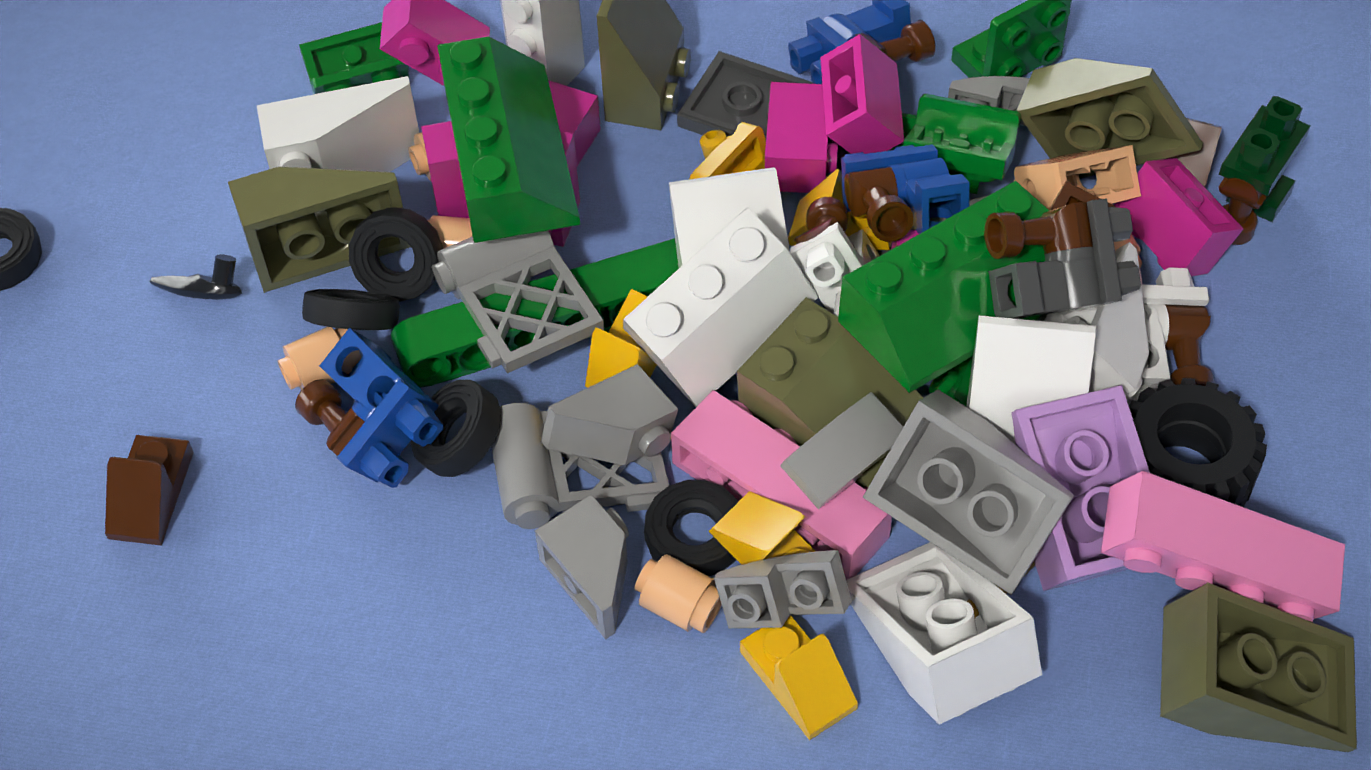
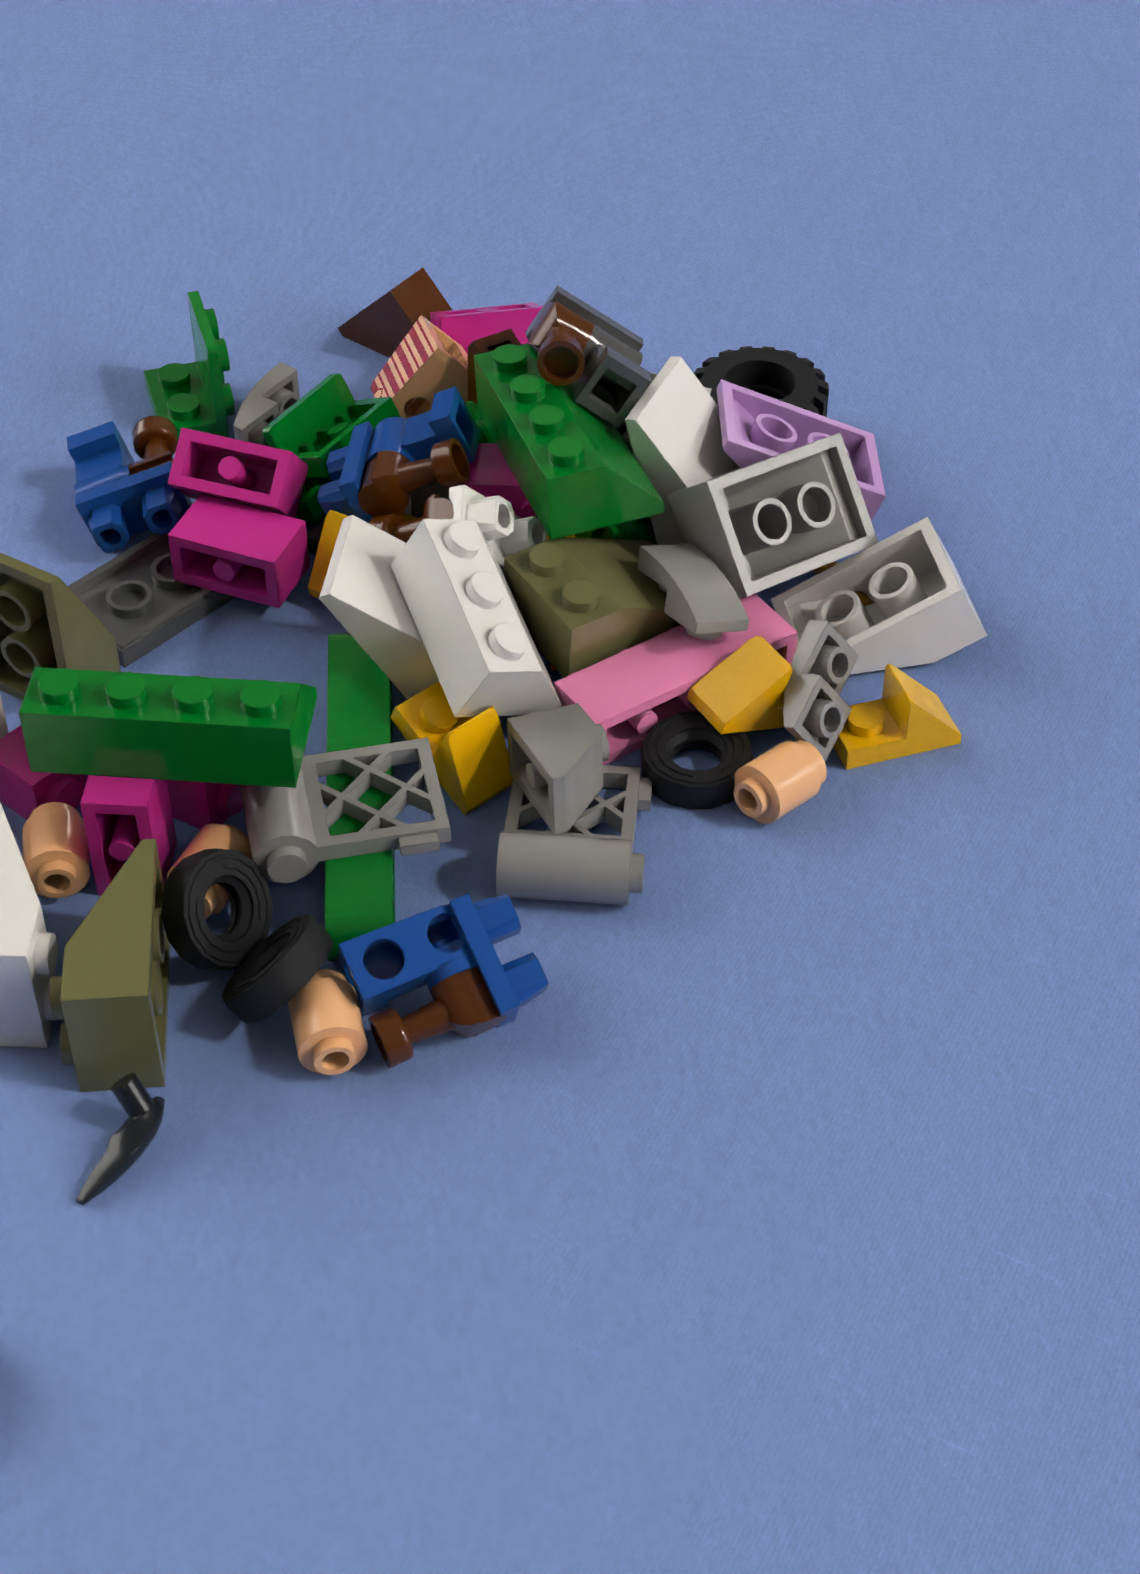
camera: 75 degrees left, 10 degrees down
(145, 489) = (439, 1236): reddish brown slope -> none
(474, 437) = (530, 877): black tyre -> none
(588, 559) = (720, 838): light grey slope -> none
(732, 153) = (219, 611): yellow piece -> none
(1104, 106) = (366, 314): olive slope -> none
(1212, 541) = (887, 400): bright pink brick -> none
(1256, 672) = (984, 449): olive slope -> none
(1257, 164) = (472, 255): dark green hips -> none

